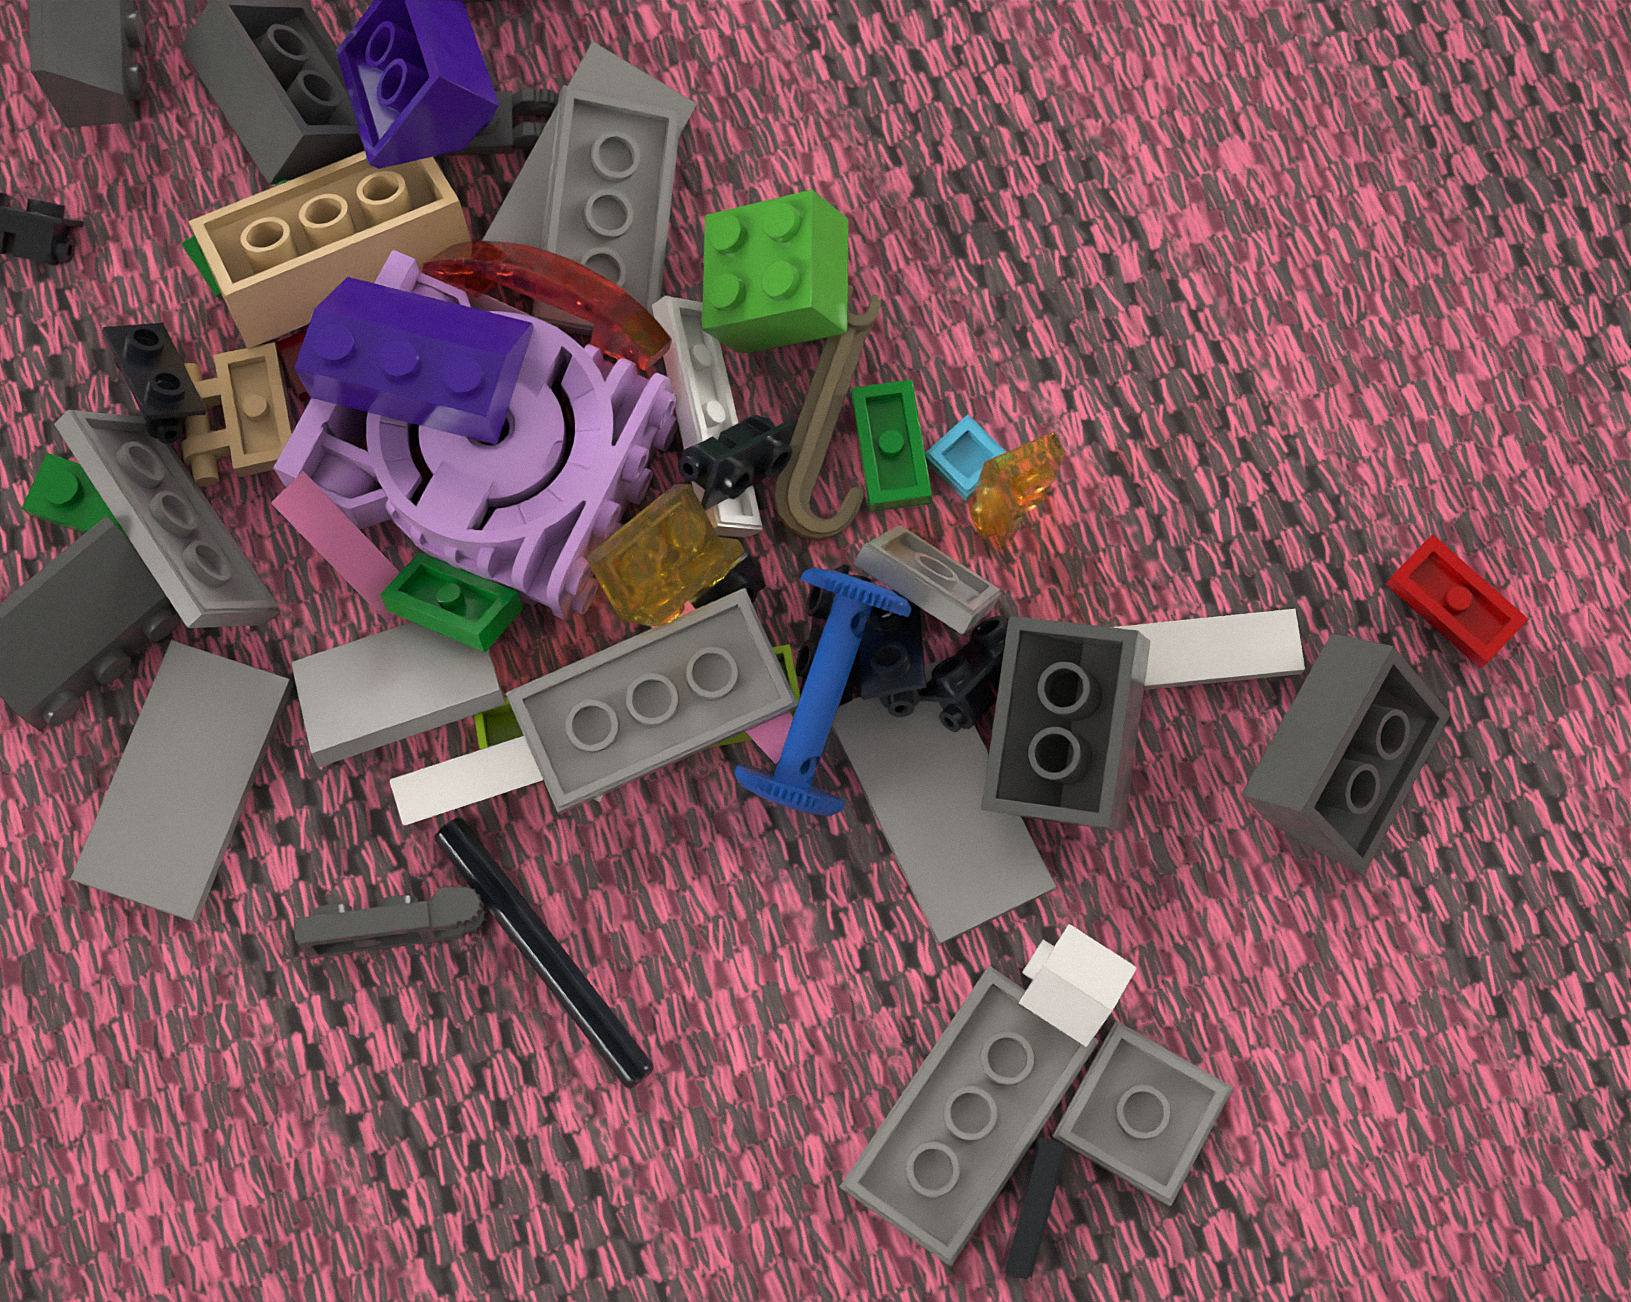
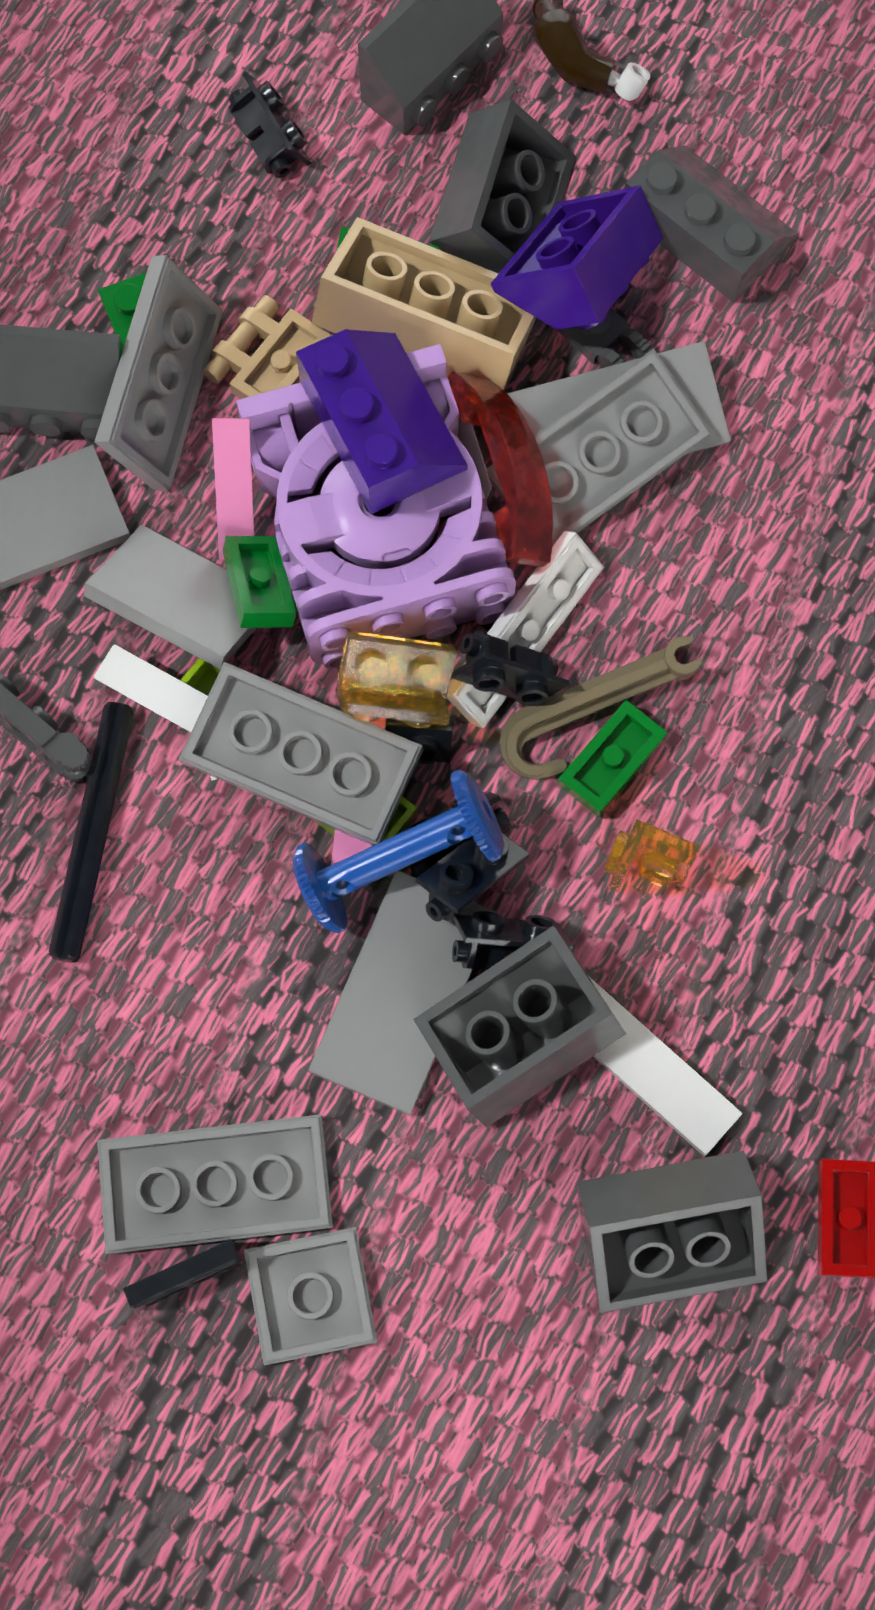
camera: 50 degrees right, 0 degrees up
(155, 377) = (243, 287): black hinge -> none
(775, 273) = (655, 585): bright green brick -> none
(928, 578) = (536, 855): light grey tile -> none
(961, 455) = (651, 805): medium azure tile -> none
(1075, 983) = (353, 1178): white brick -> none

